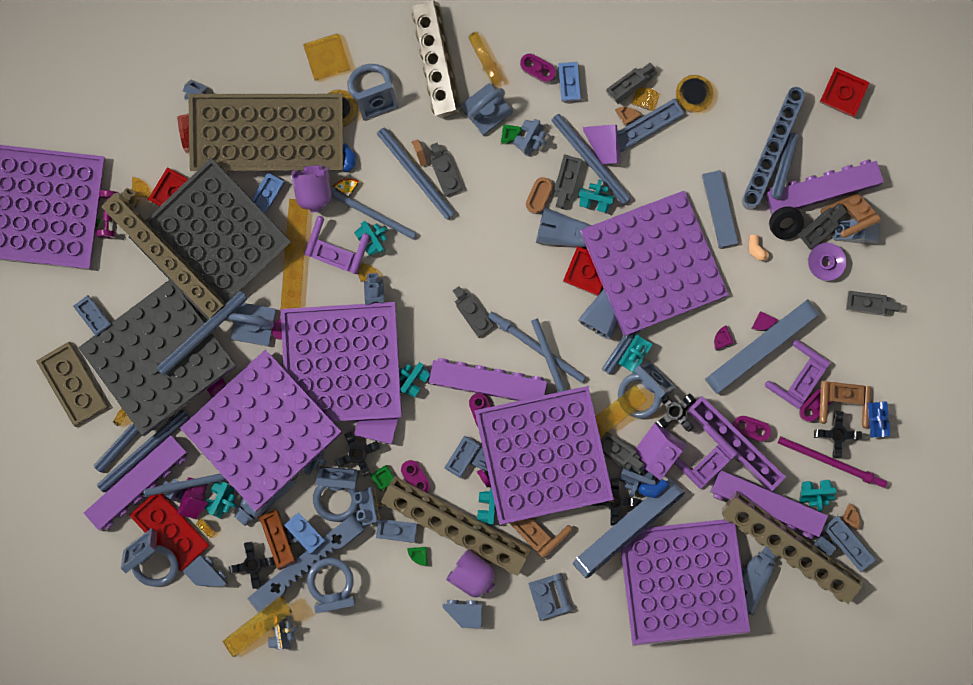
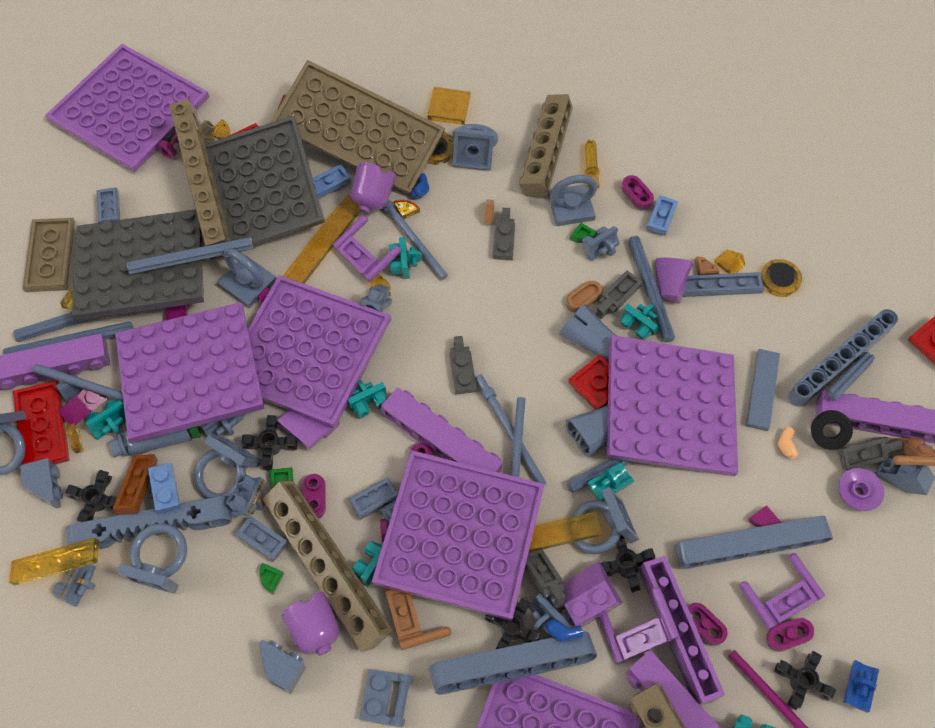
camera: 25 degrees right, 20 degrees down
(415, 173) = (476, 228): sand blue axle -> none
(631, 82) = (723, 240): dark grey hinge -> none
(722, 338) = (712, 515): magenta tile -> none
(845, 394) = (830, 637): medium nougat plate -> none
(870, 303) = (896, 556): dark grey hinge -> none

